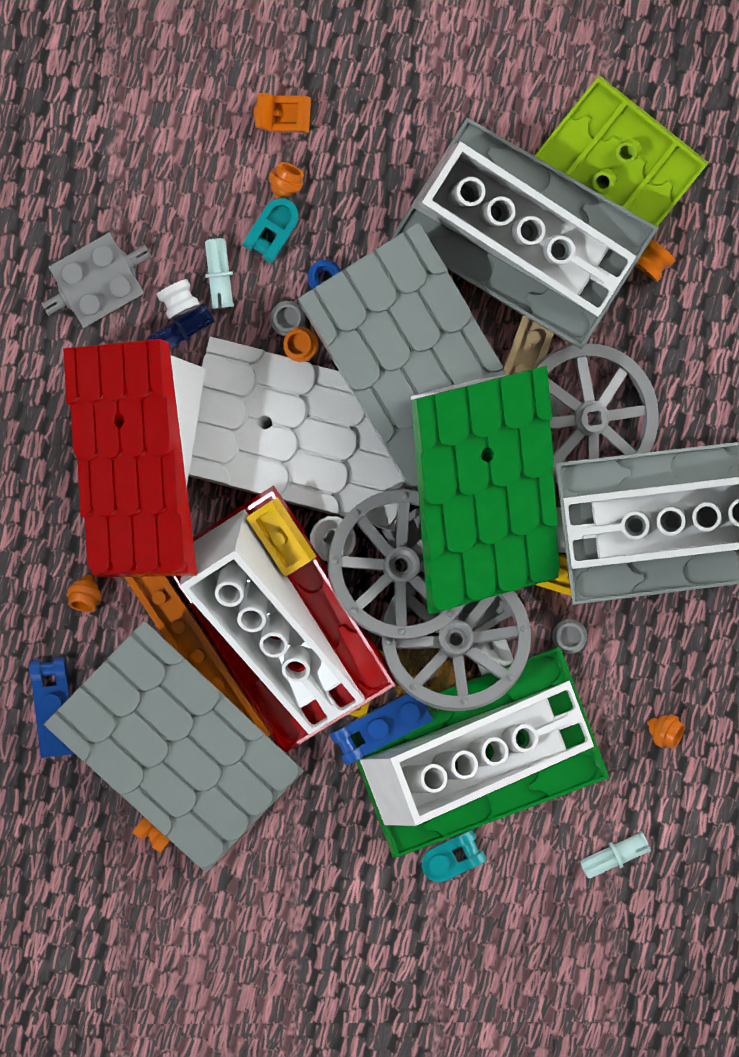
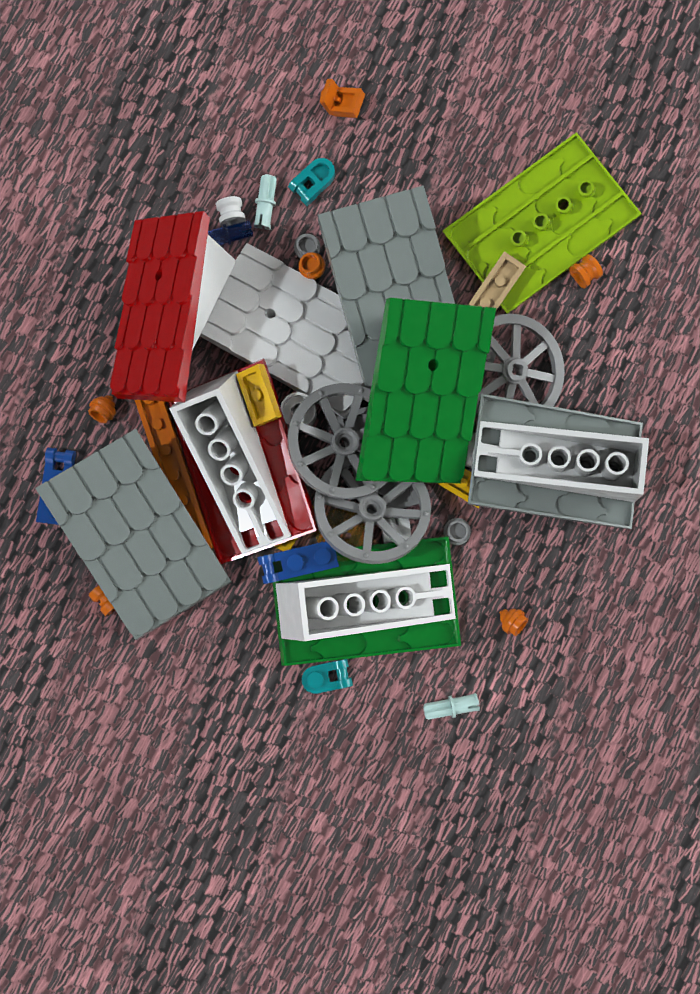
camera: 10 degrees right, 5 degrees down
(96, 280) = (175, 184): light grey plate -> none
(285, 180) = (331, 148): orange plate -> none
(527, 232) = (501, 225): piece -> none

